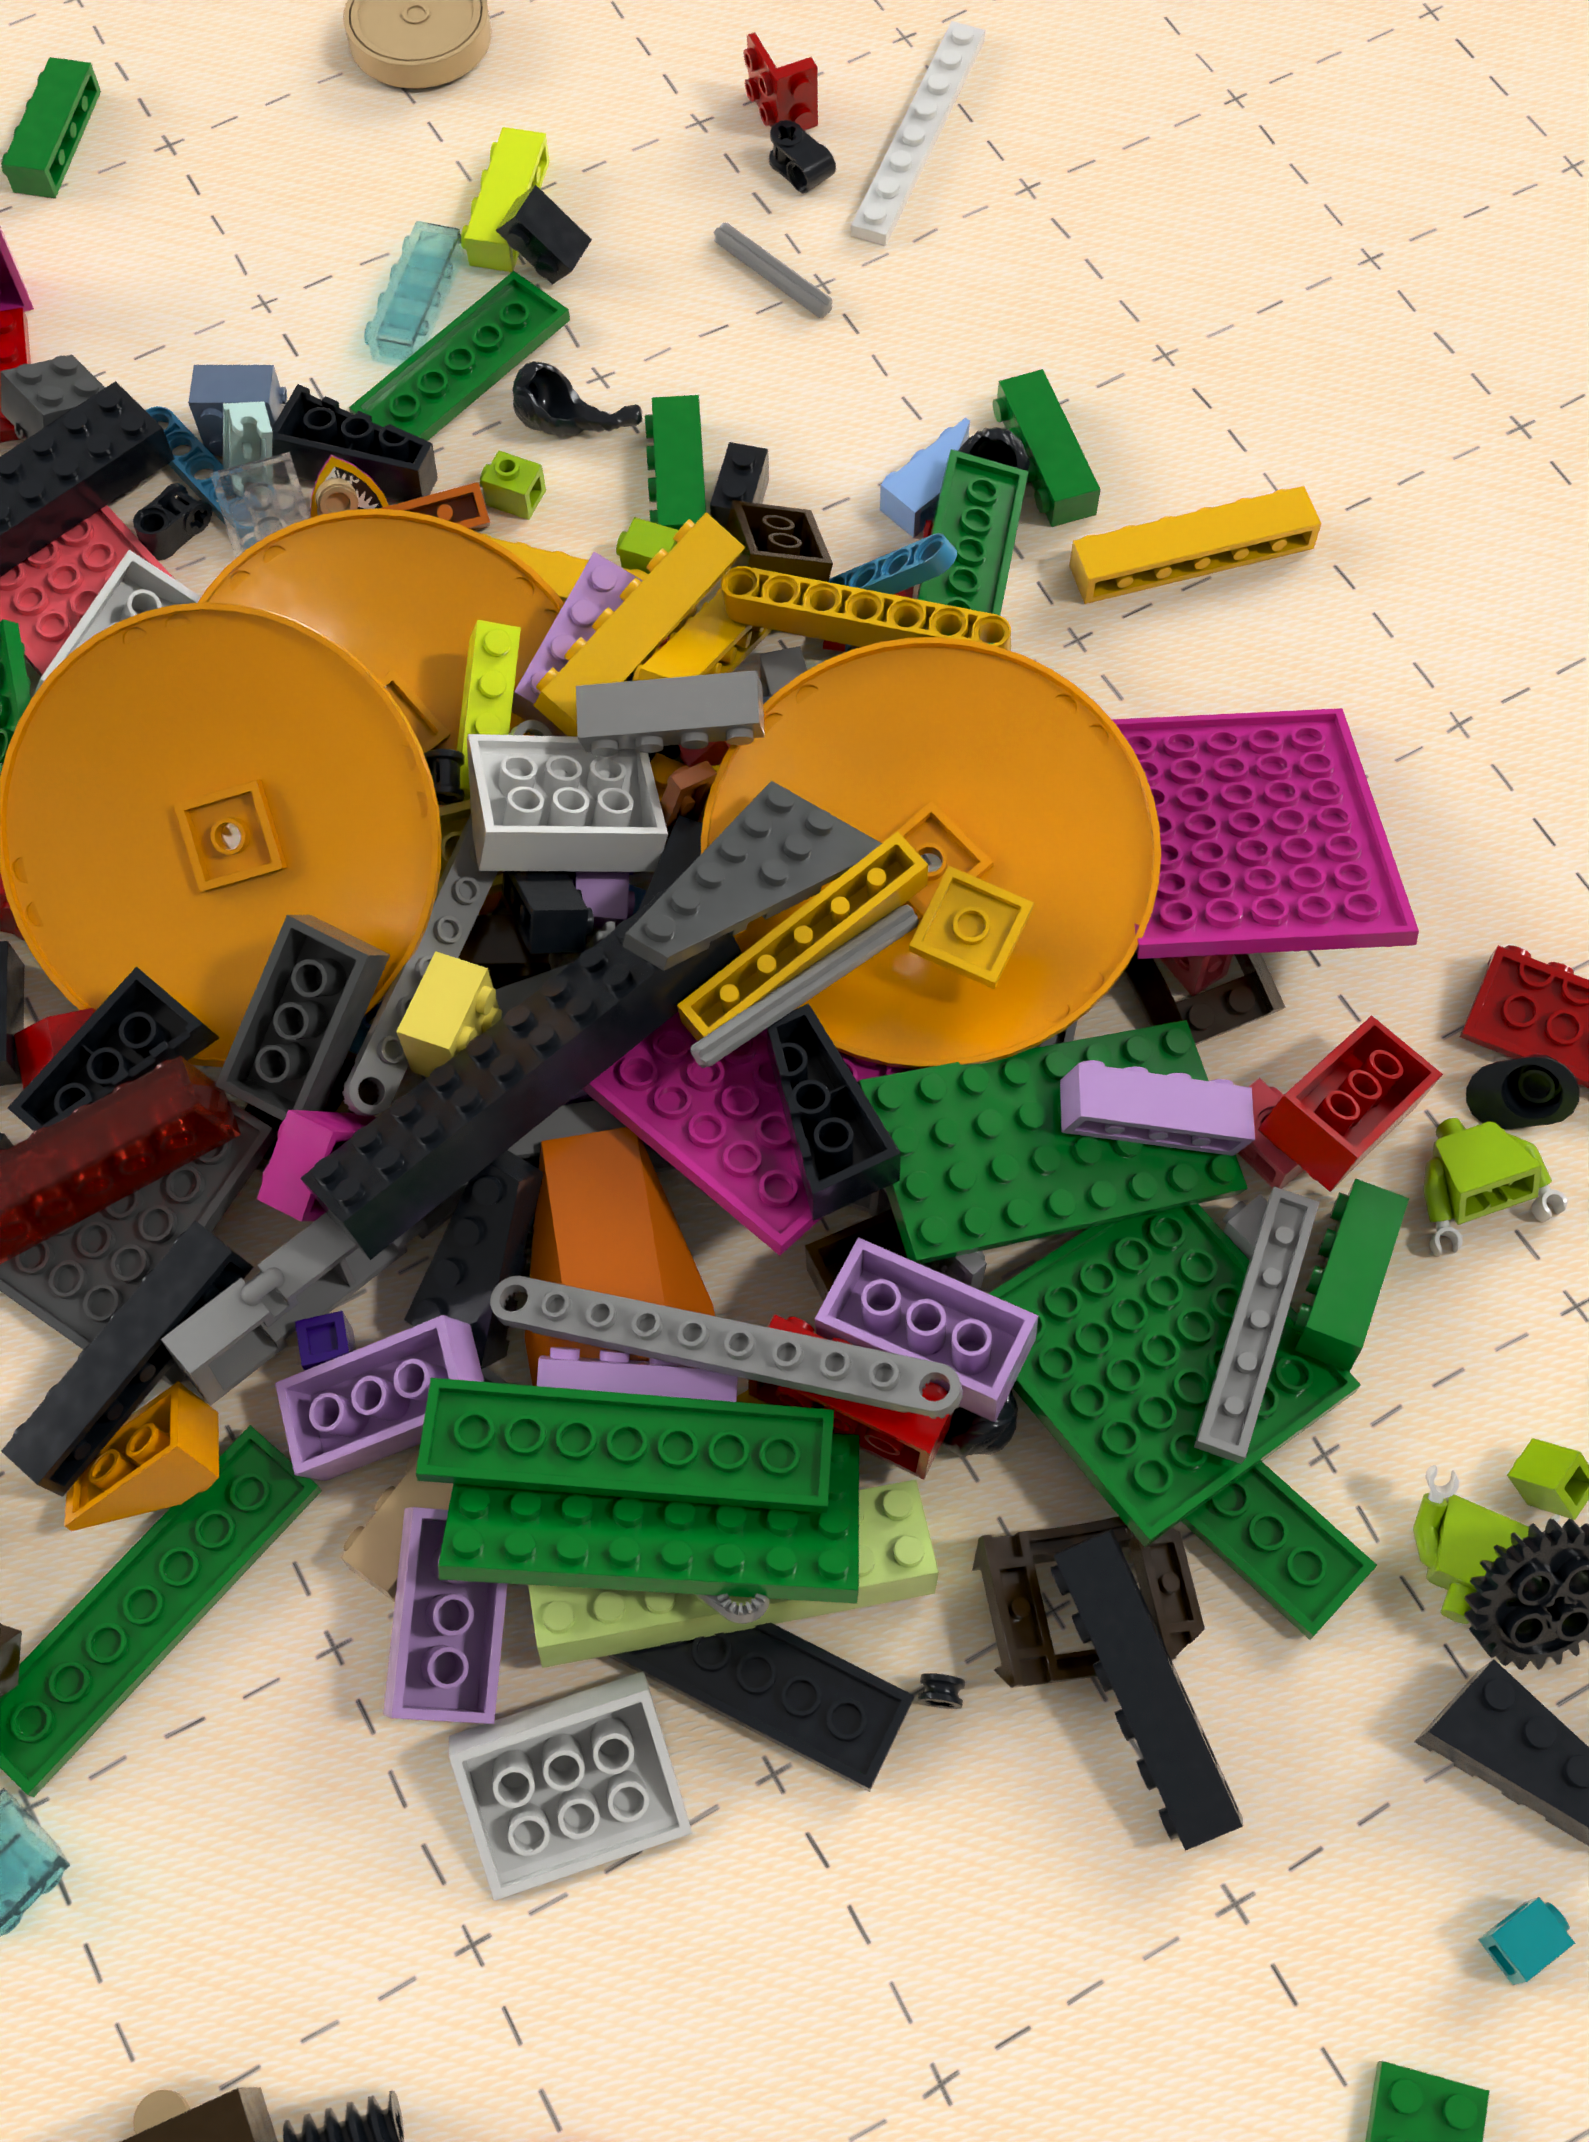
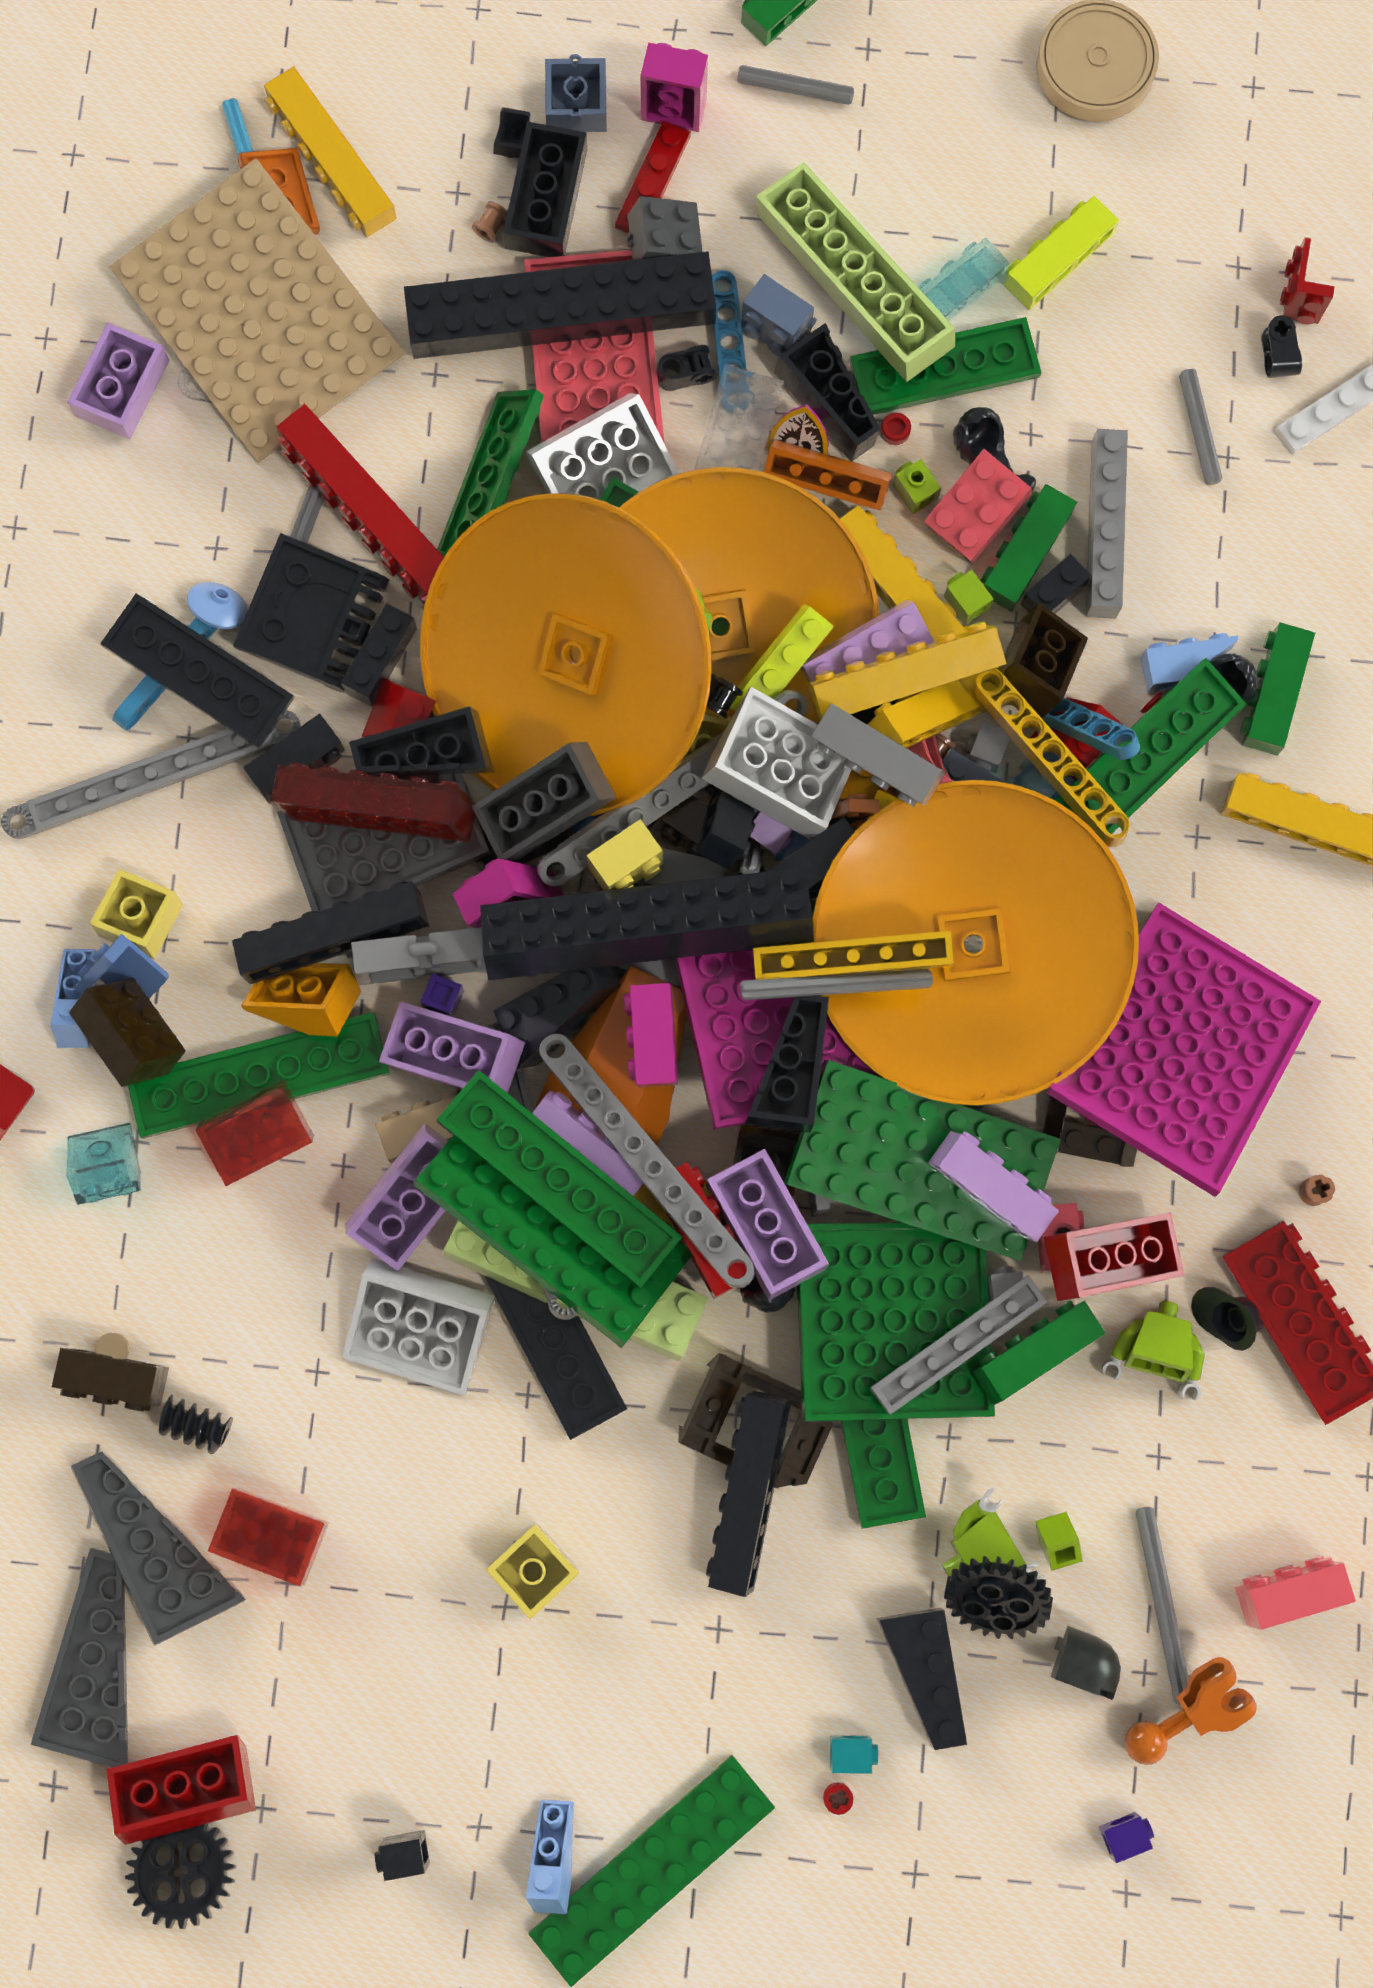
camera: 30 degrees right, 15 degrees up
(111, 210) = (795, 84): none -> light grey axle
(183, 1679) = (254, 1133): none -> clear red brick
(245, 433) = (765, 349): light aqua hinge -> none
(298, 318) = (856, 271): none -> yellowish green brick
(336, 496) = (794, 431): tan tile -> none
(450, 450) = (895, 428): none -> red tile
(543, 235) = (1061, 306): black brick -> none
(595, 458) = (978, 506): none -> coral brick
(625, 1190) = (652, 1035): none -> dark pink brick
(746, 402) = (1106, 523): none -> light grey brick
(757, 867) = (858, 896): dark grey wing -> none
(941, 1691) = (643, 1416): black bush -> none
(946, 2000) = (533, 1571): none -> light yellow brick
(971, 927) = (959, 1010): yellow plate -> none
(1501, 897) = (1318, 1180): none -> nougat bush
(1568, 2026) = (842, 1808): none -> red bush

